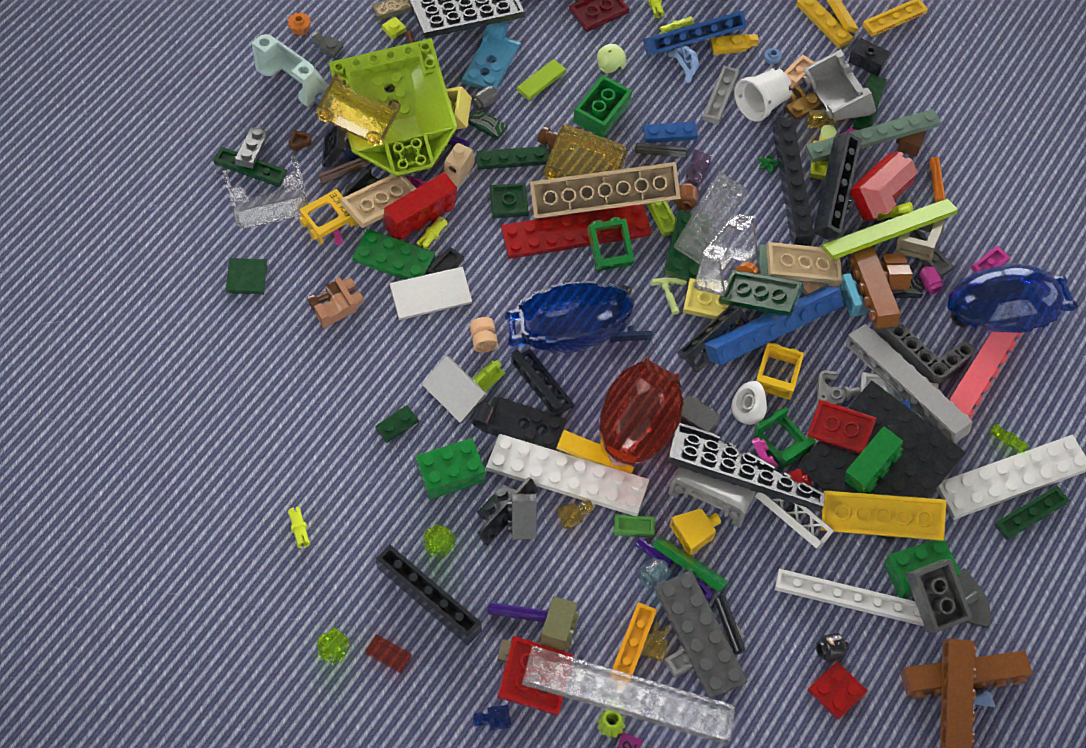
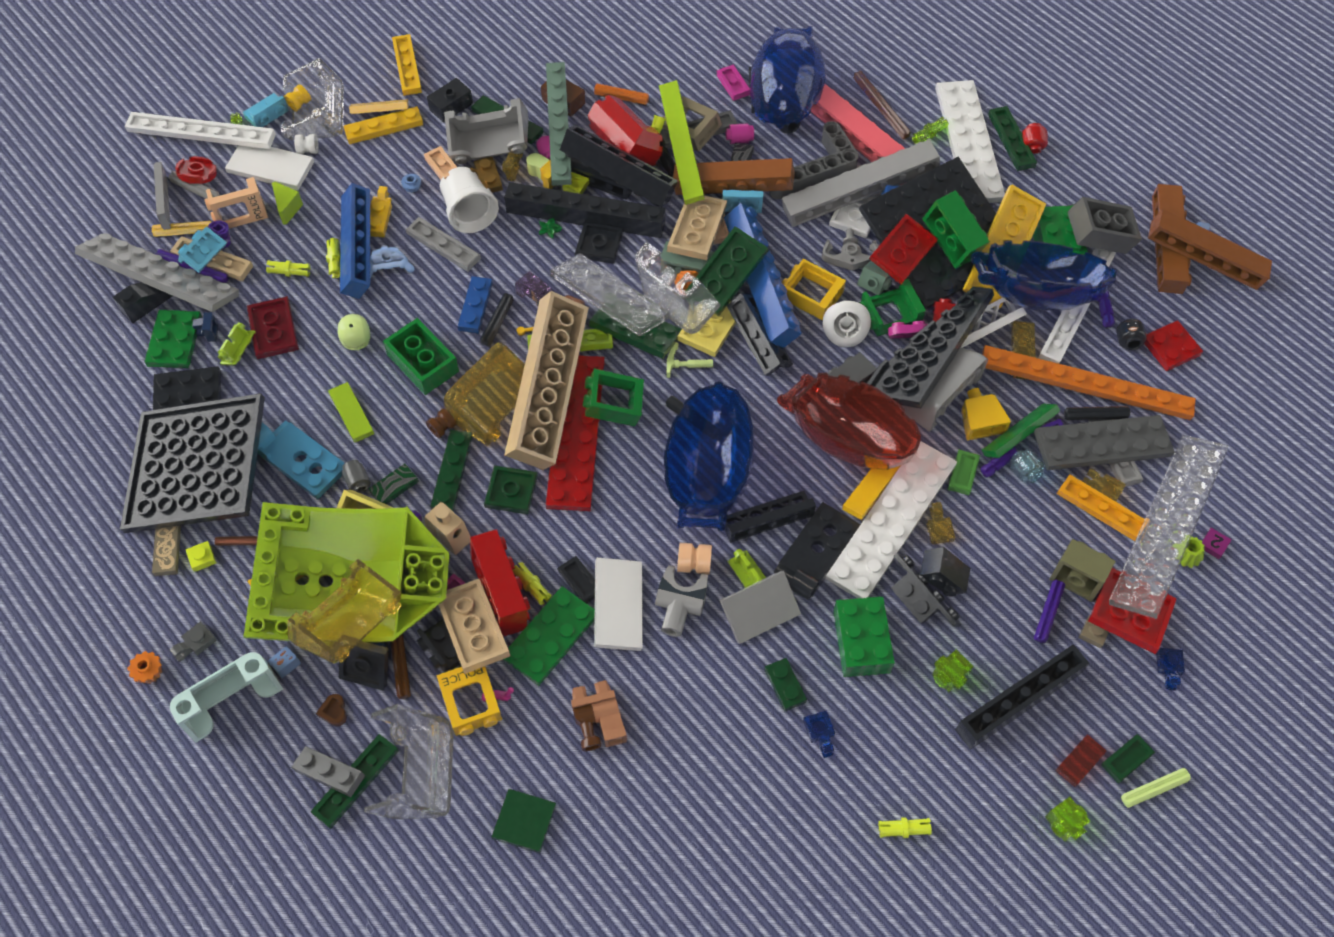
camera: 70 degrees left, 0 degrees up
(363, 453) = (820, 729): none -> clear blue plate
(379, 715) = (1155, 787): none -> yellowish green axle
(400, 691) = (1127, 758): none -> dark green tile
(445, 334) = (679, 601): none -> light grey connector
(762, 616) = (1089, 383): none -> orange plate
(767, 202) = (599, 242): none -> black tile
(779, 555) = (1023, 339): none -> clear yellow plate
(805, 415) = (874, 279): none -> sand green brick
(855, 545) = (1043, 275): none -> clear blue windscreen
(857, 624) = (1106, 310): none -> dark purple axle
(896, 271) = (734, 151): dark orange piece -> none
(1023, 392) = (882, 105): none -> axle
(1039, 532) = (1035, 137): none -> red head

